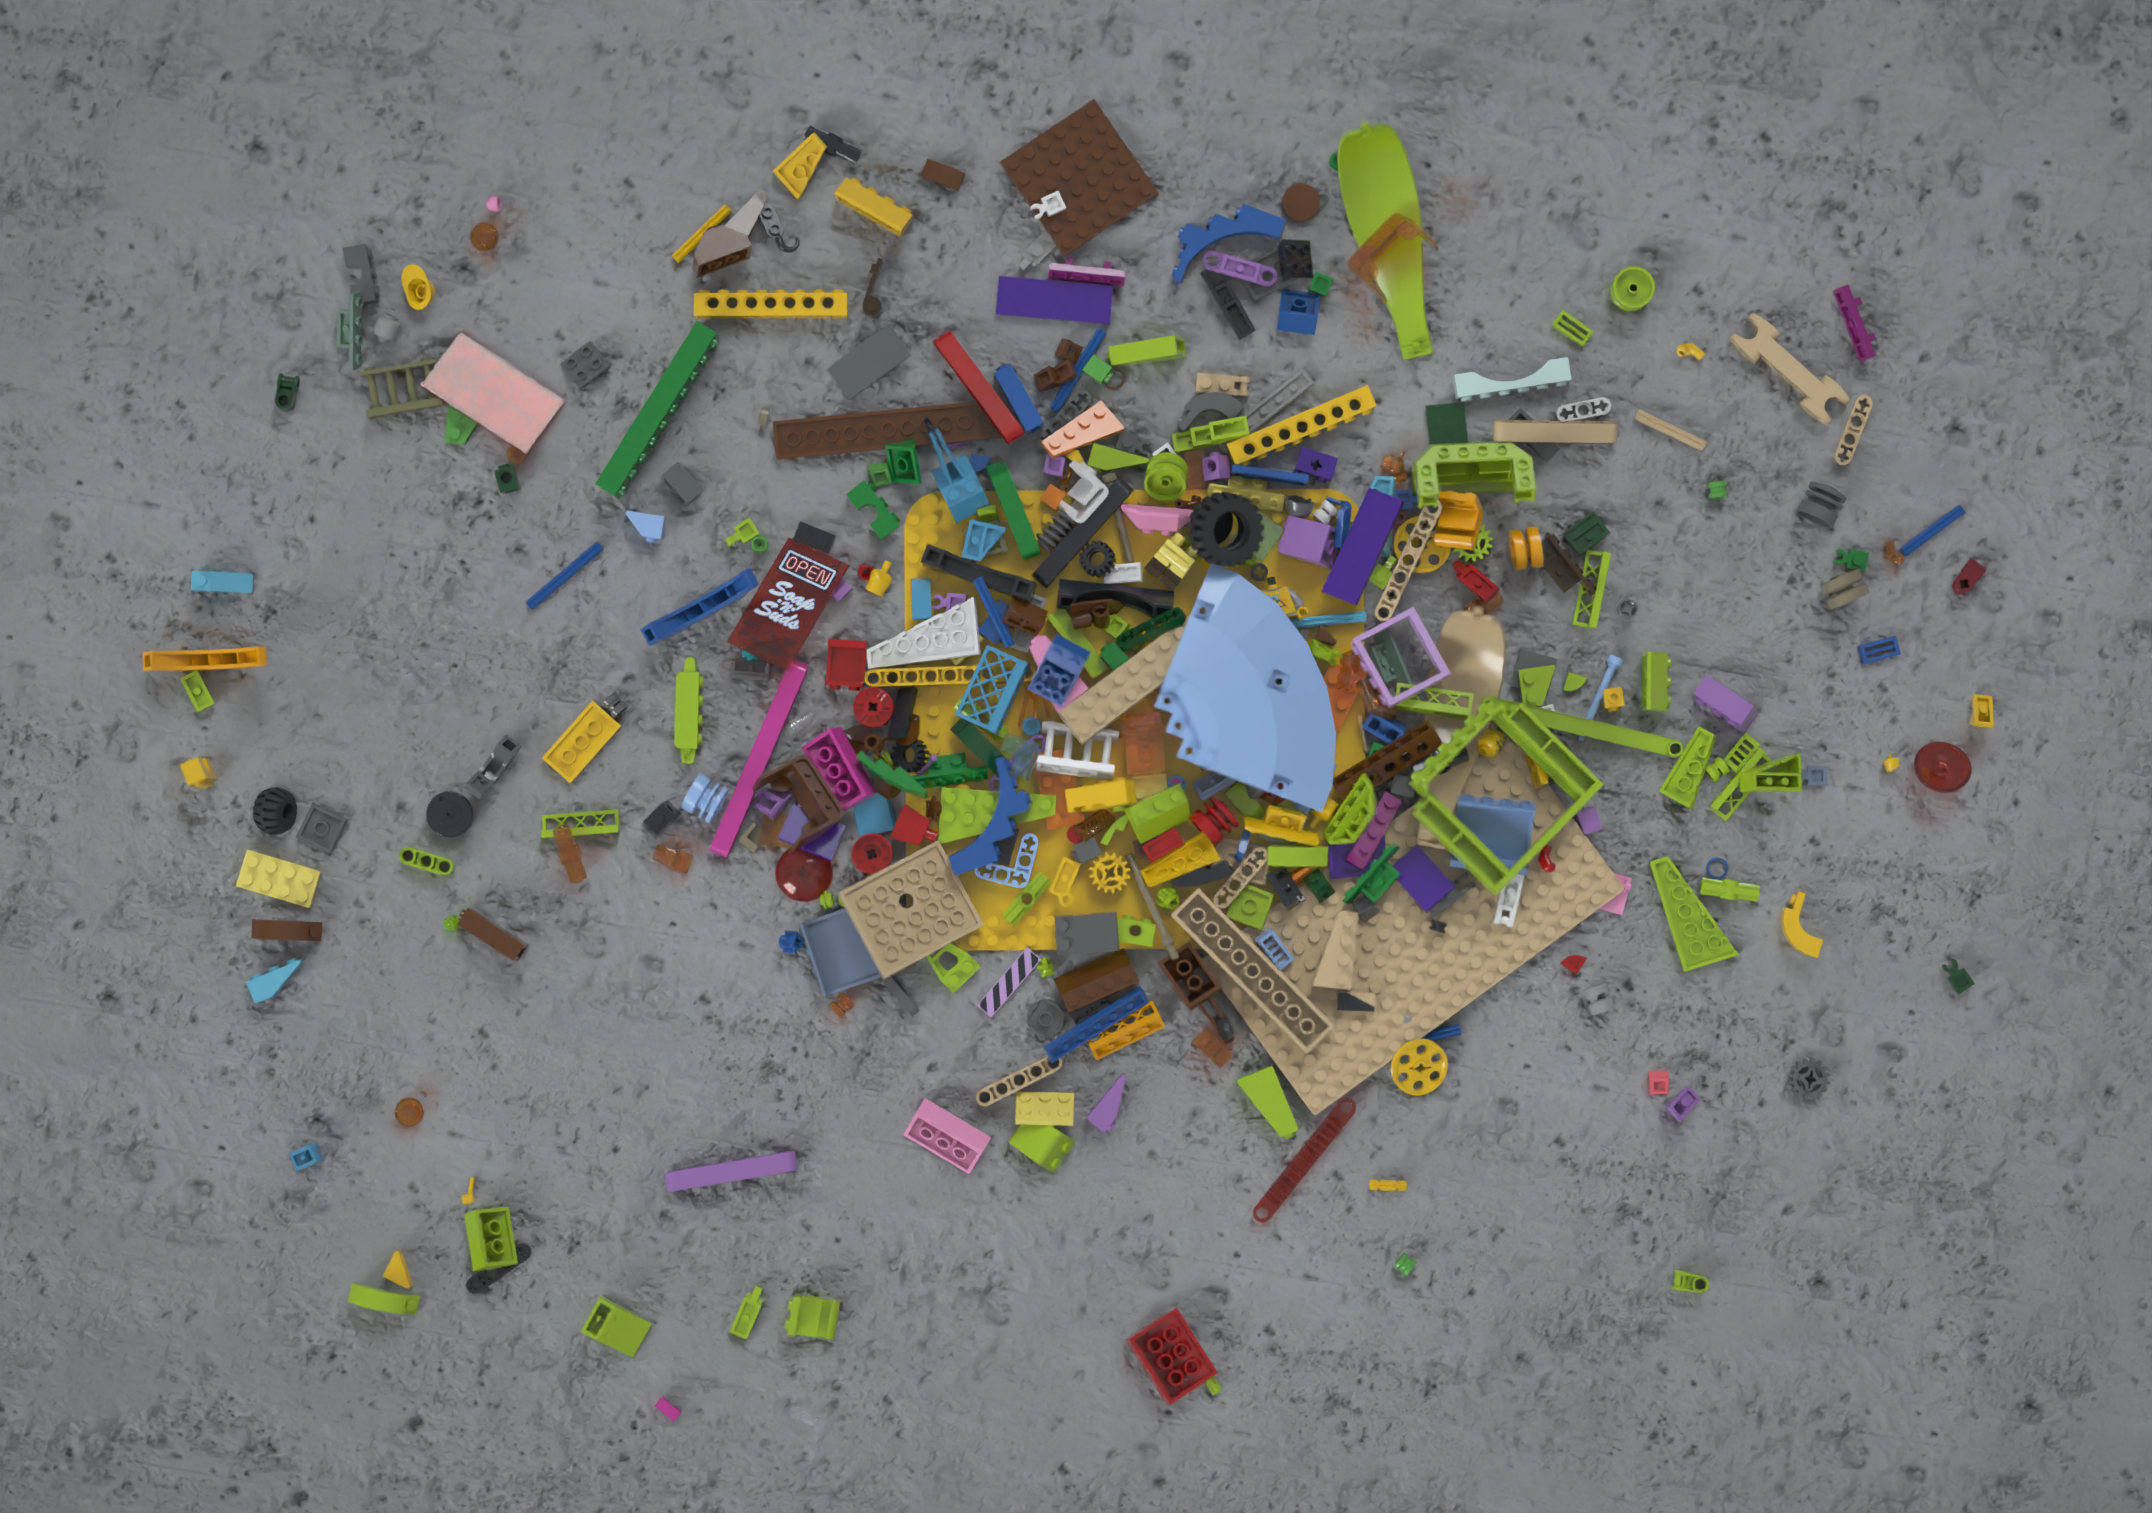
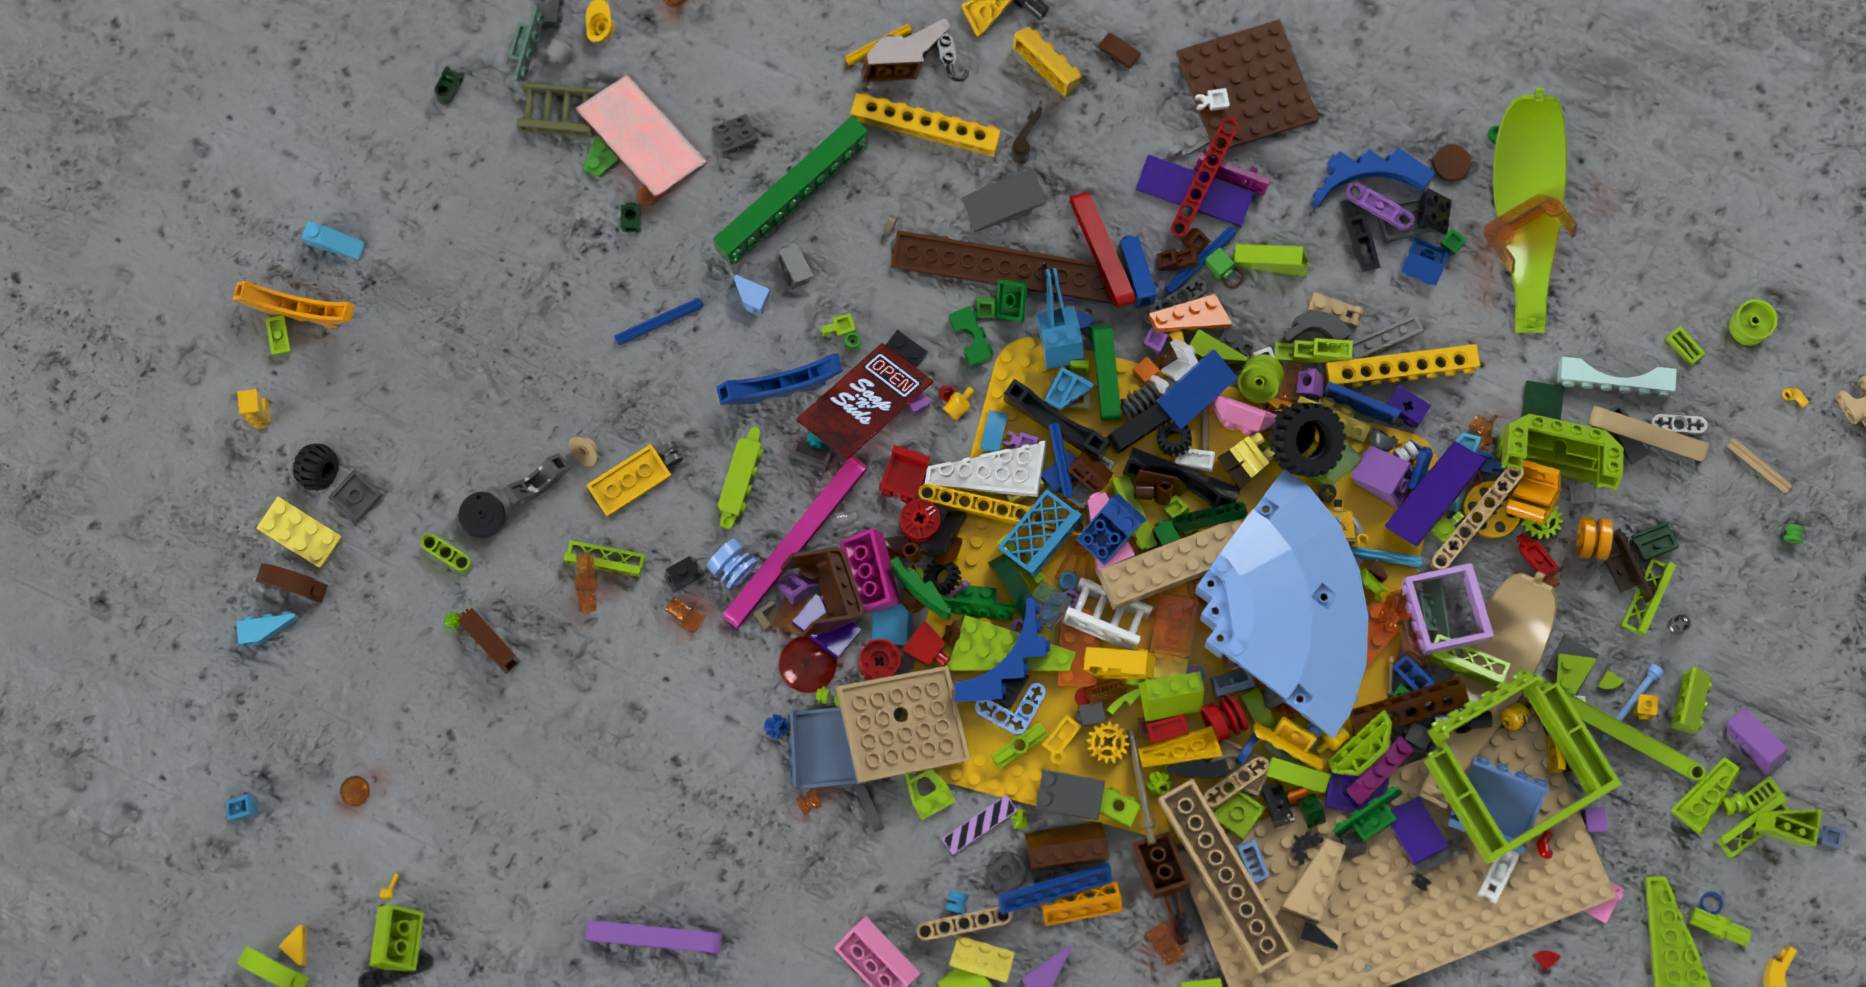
camera: 15 degrees right, 10 degrees down
(529, 724) = (583, 450): none -> tan piece
(1006, 1061) = (956, 902): none -> dark azure wheel
(1064, 279) = (1204, 168): none -> red beam
(1106, 507) = (1197, 389): none -> blue tile
(1315, 924) = (1299, 848): none -> black animal

